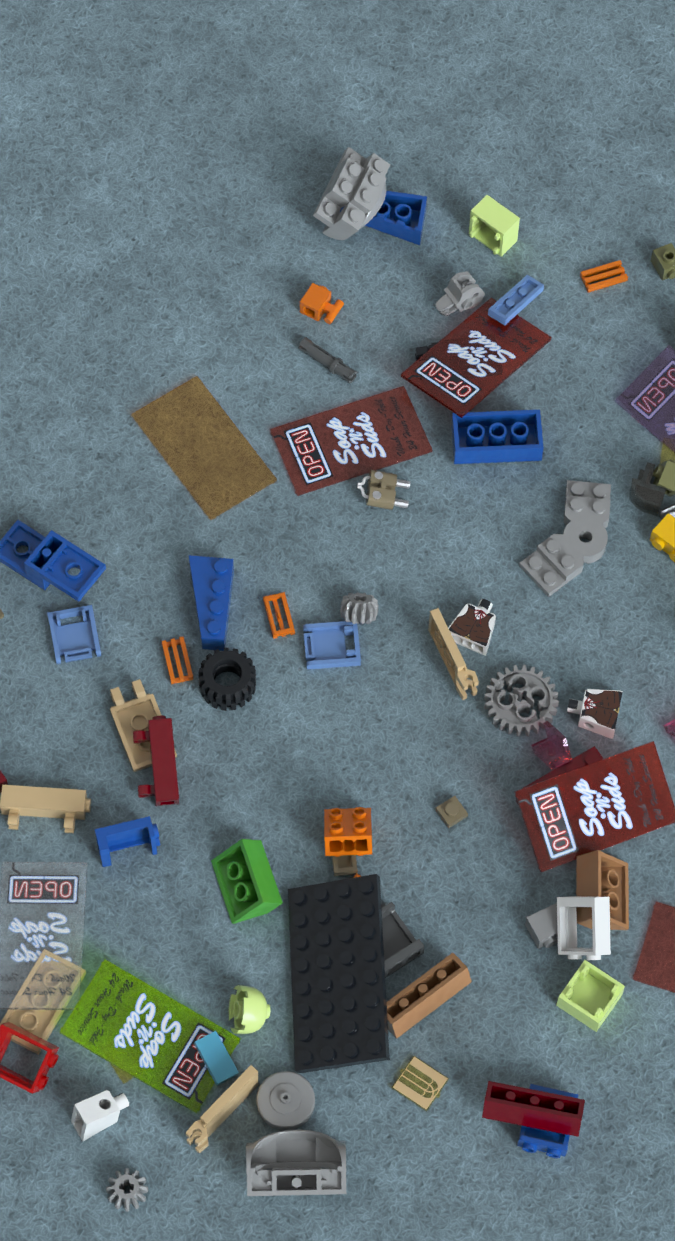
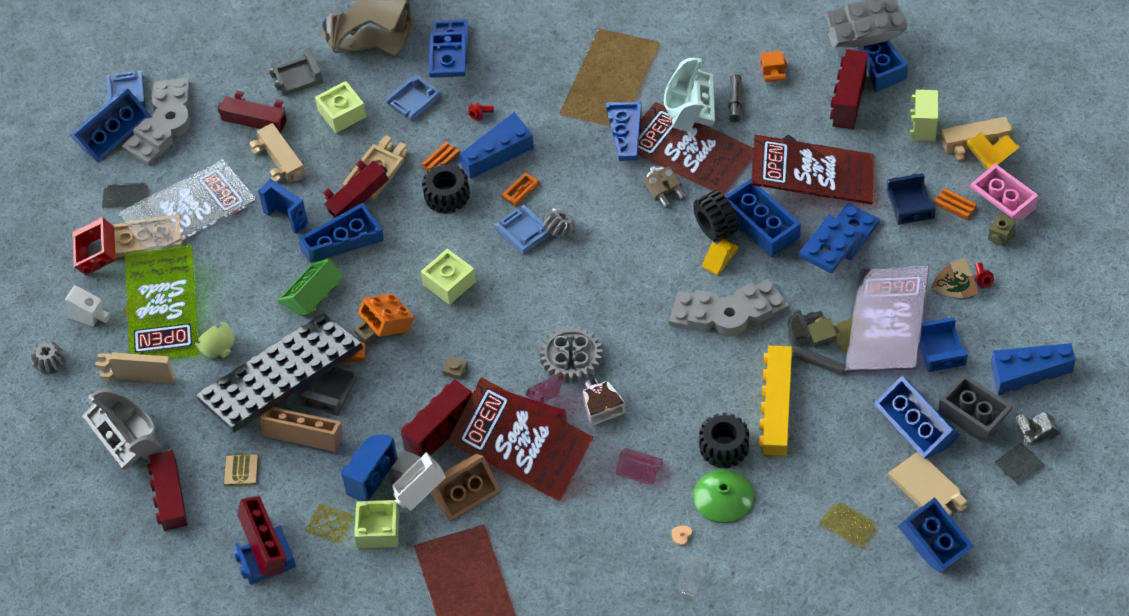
camera: 60 degrees right, 10 degrees down
(35, 708) = (340, 107): none -> yellowish green container
(148, 587) = (476, 111): none -> red plate
(208, 802) = (342, 234): none -> blue wedge
(216, 1058) = (174, 345): medium azure tile -> none
(281, 472) = (625, 127): none -> wing
(285, 1100) = (170, 401): light grey wheel -> none
(314, 398) = (689, 106): none -> light aqua piece
(343, 746) = (448, 276): none -> yellowish green container
(398, 1167) = (168, 490): none -> dark red brick
(409, 261) = (849, 89): none -> dark red brick
(451, 655) = (566, 290): tan tile -> none
(460, 294) = (853, 132): light grey hinge -> none
(469, 471) = (715, 215): none -> black tyre
(474, 627) = (604, 294): torso -> none
(507, 501) = (719, 256): none -> yellow slope
(515, 300) = (881, 164): medium blue plate -> none
(517, 865) = (436, 421): none -> dark red brick
(525, 962) = (369, 467): none -> blue brick
(532, 1049) = (325, 534): none -> clear yellow window
(544, 203) = (955, 138): none -> tan brick
(571, 307) = (910, 199): none -> dark blue panel
(574, 391) = (839, 238): none -> blue bracket
(584, 204) = (989, 154): none -> yellow panel
(634, 228) = (1006, 192): none -> bright pink slope

